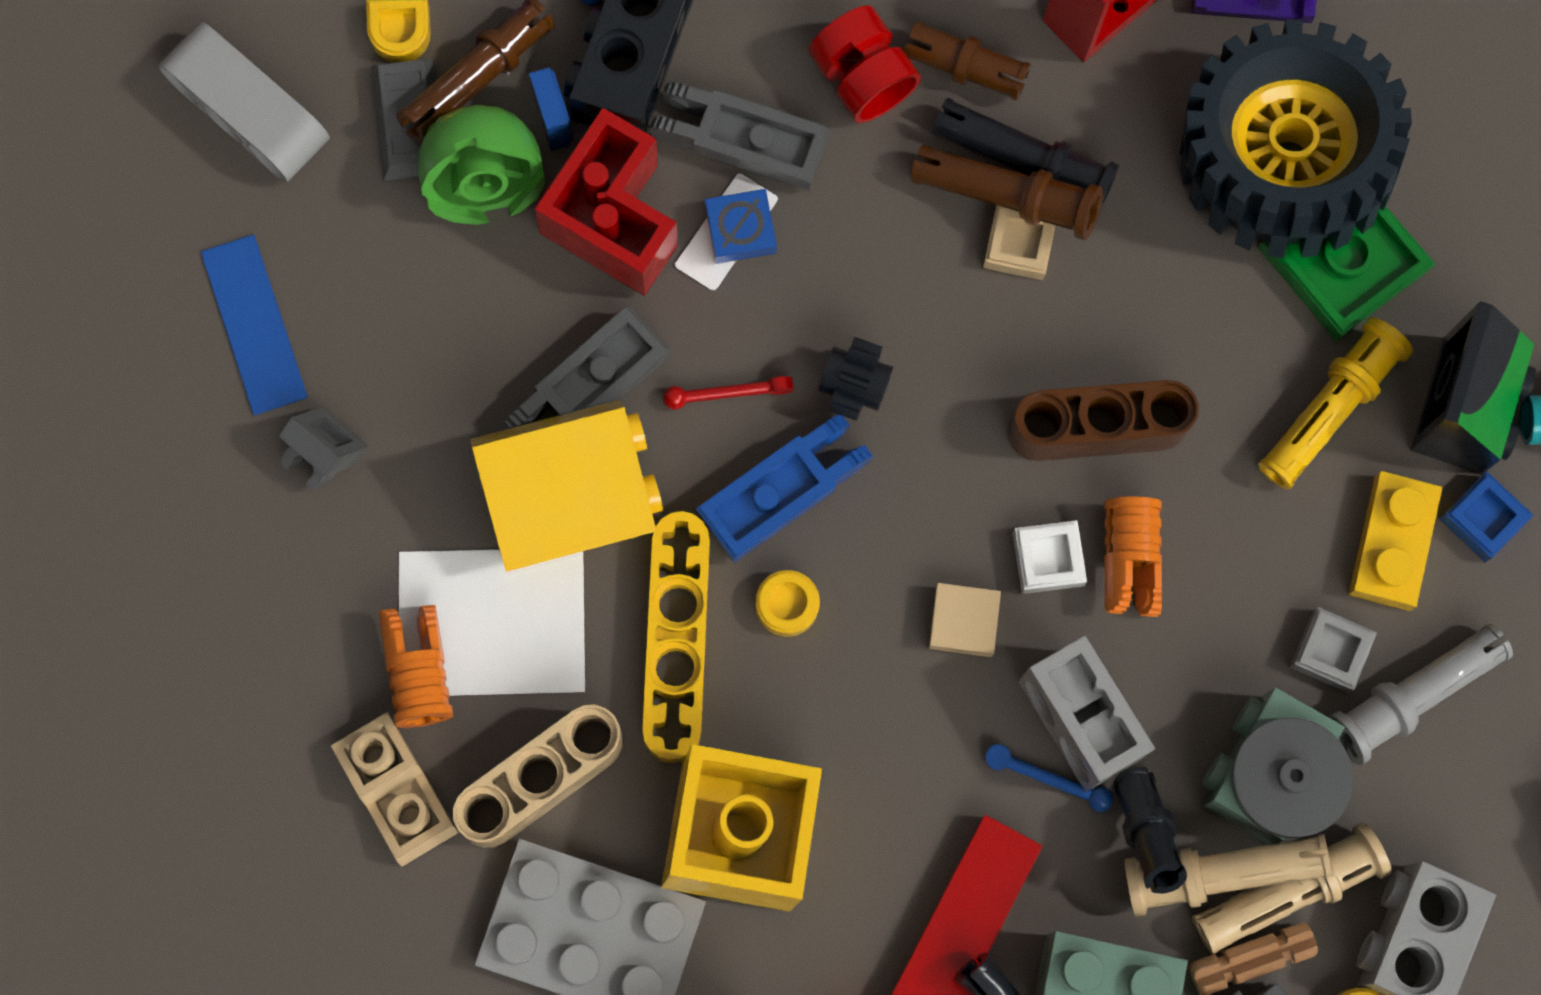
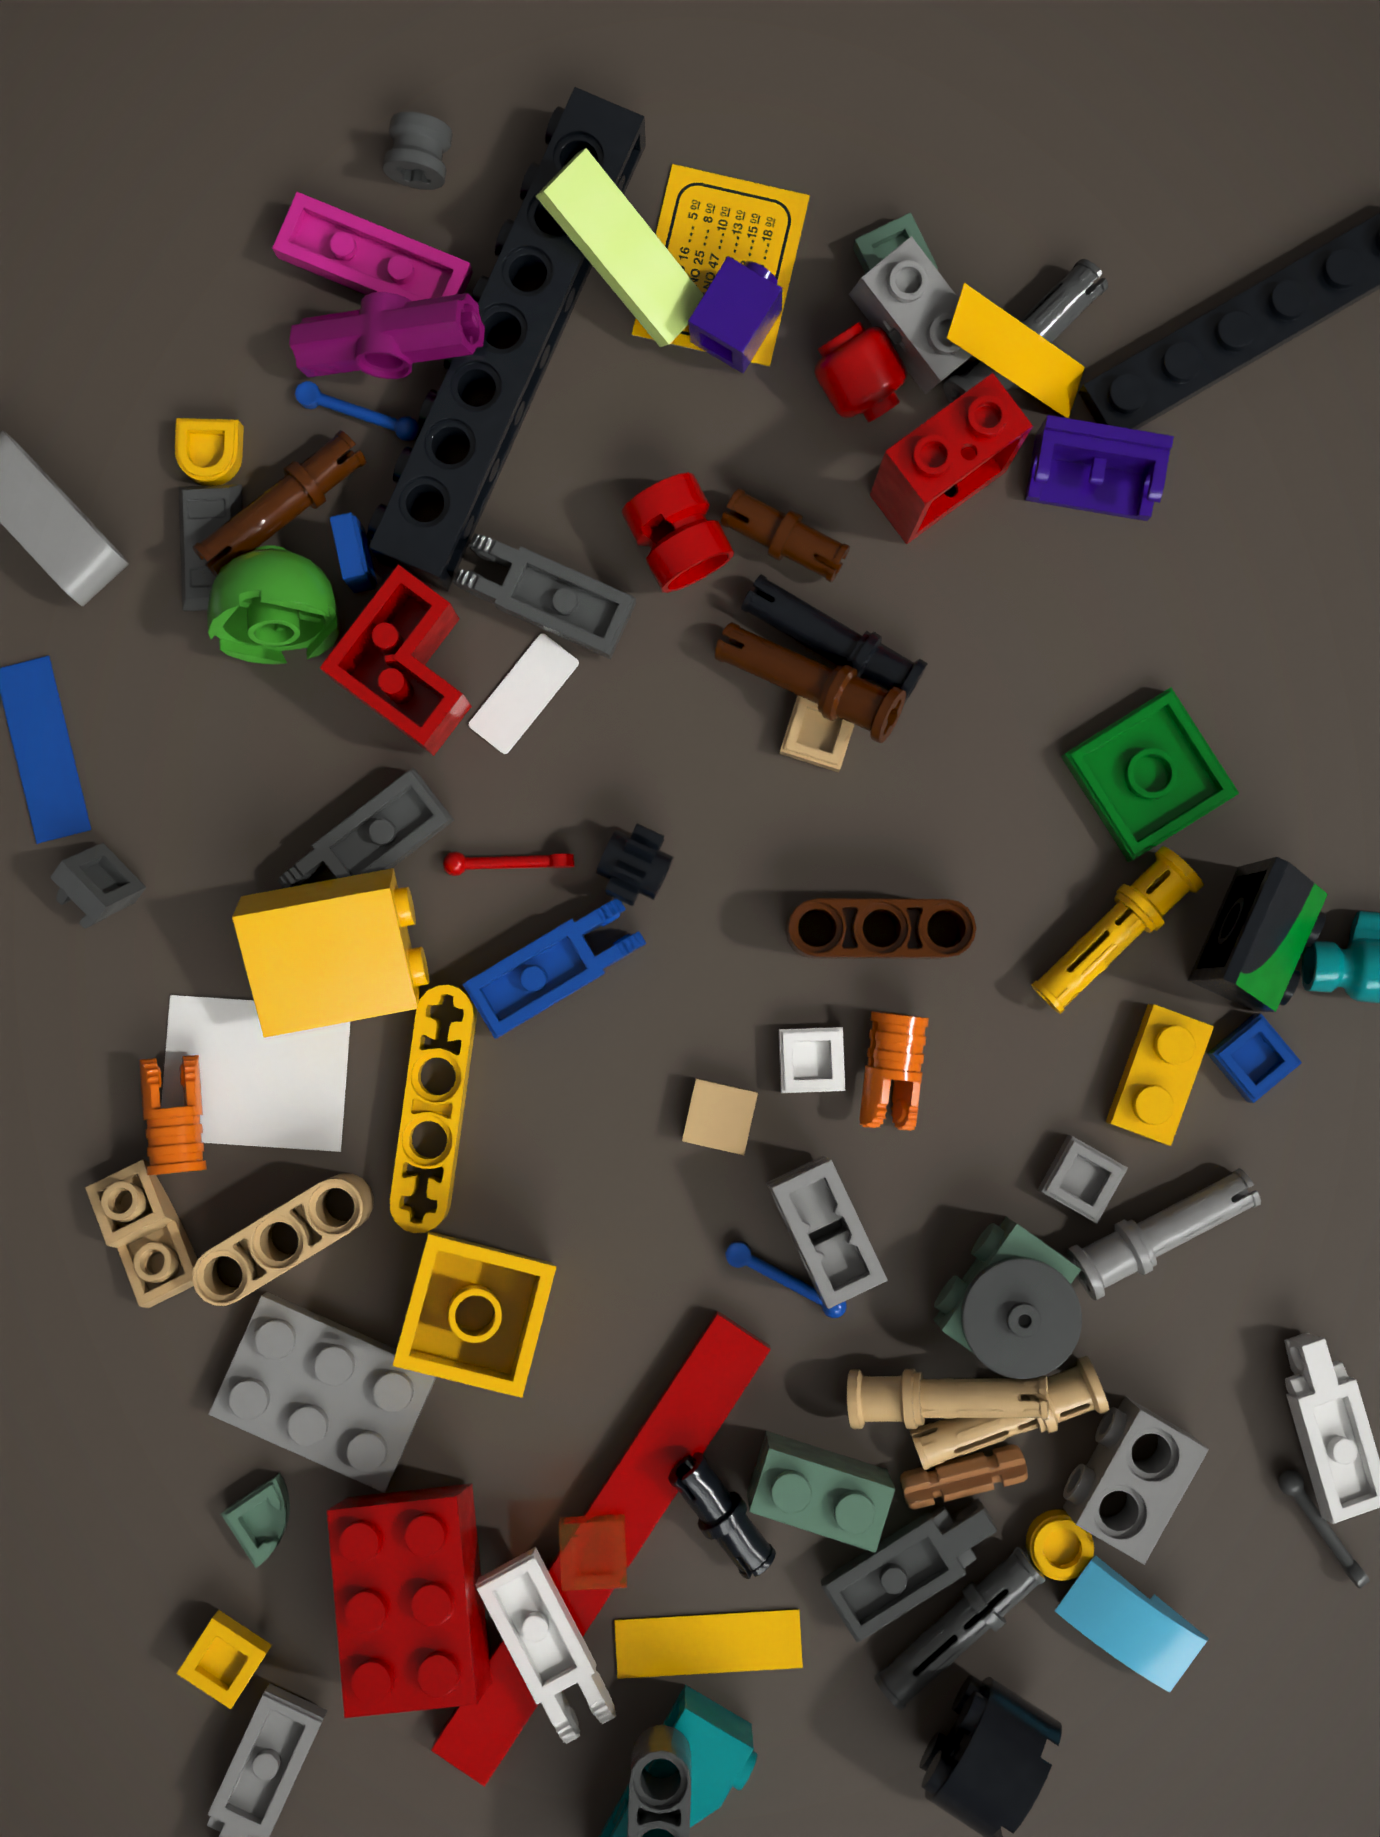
camera: 10 degrees right, 10 degrees up
(740, 226) = (536, 691): blue tile -> none
(787, 603) = (546, 1083): yellow tile -> none
(1150, 830) = (875, 1355): black pin -> none
(1240, 120) = (1129, 589): black wheel -> none

